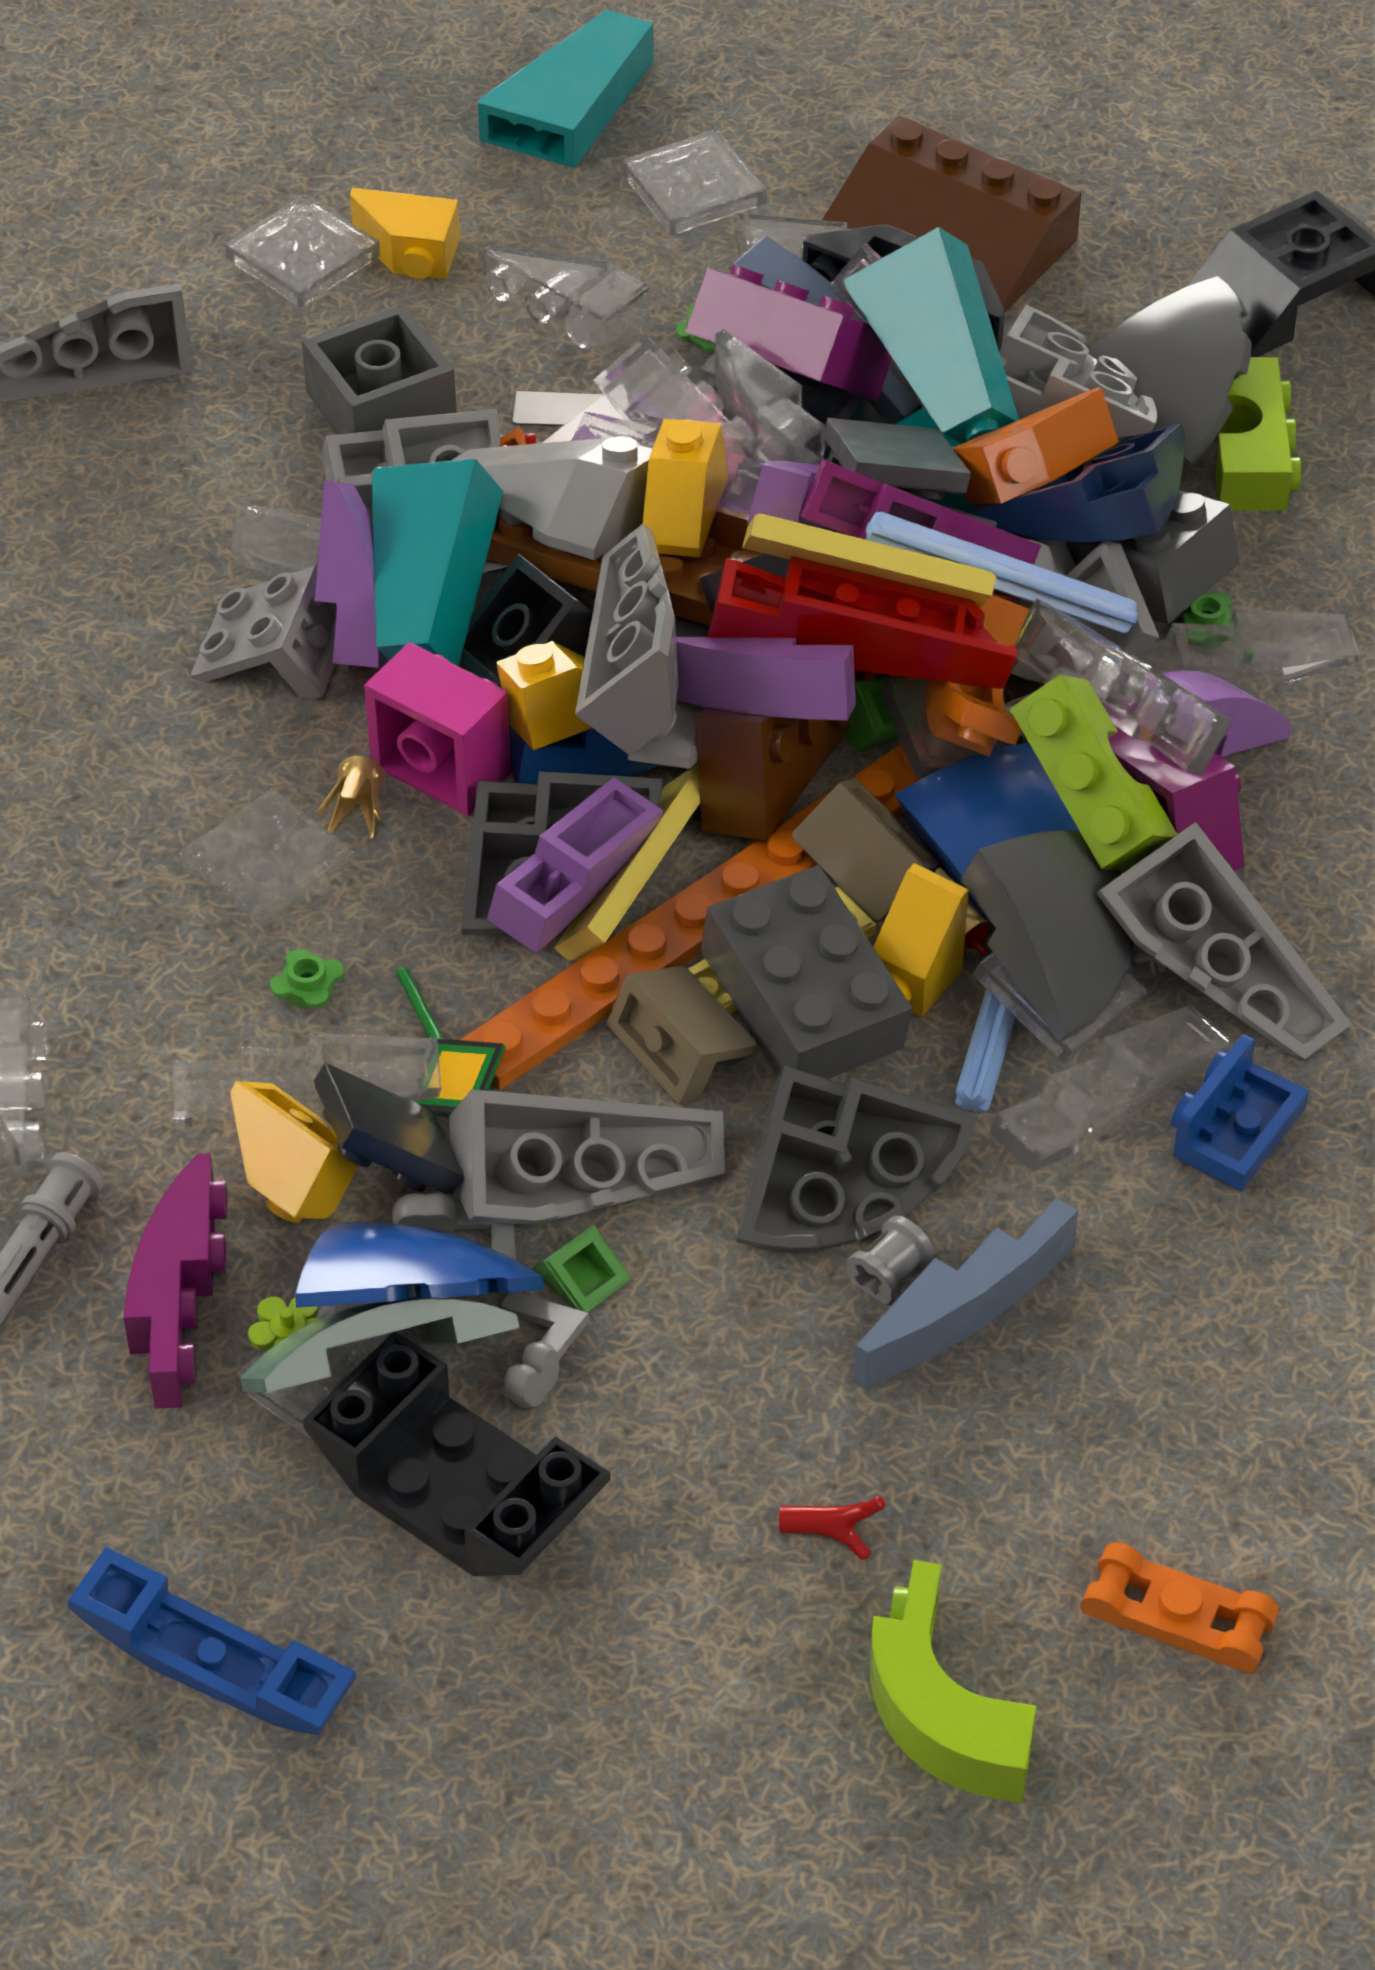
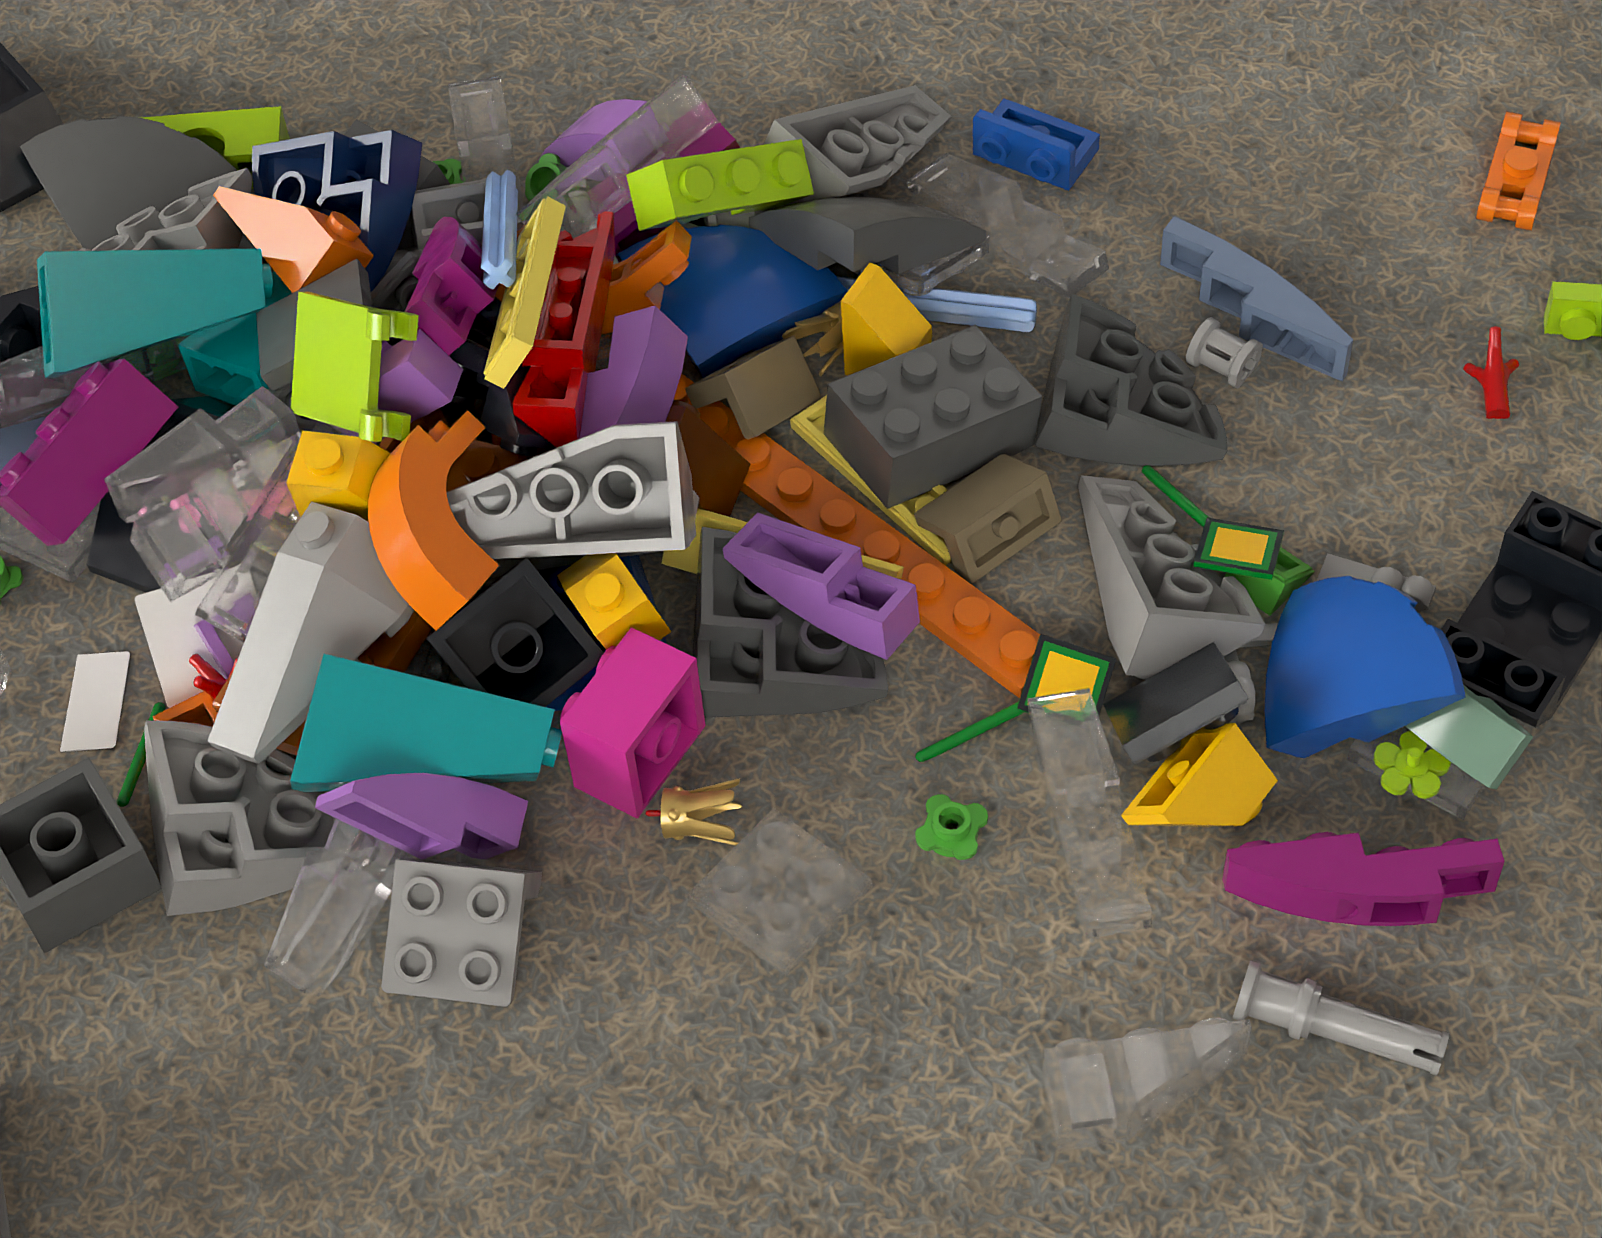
camera: 90 degrees left, 5 degrees up
(602, 1224) = (1224, 543): none -> piece
(617, 499) = (414, 527): none -> orange arch
(793, 441) = (340, 364): none -> lime flag

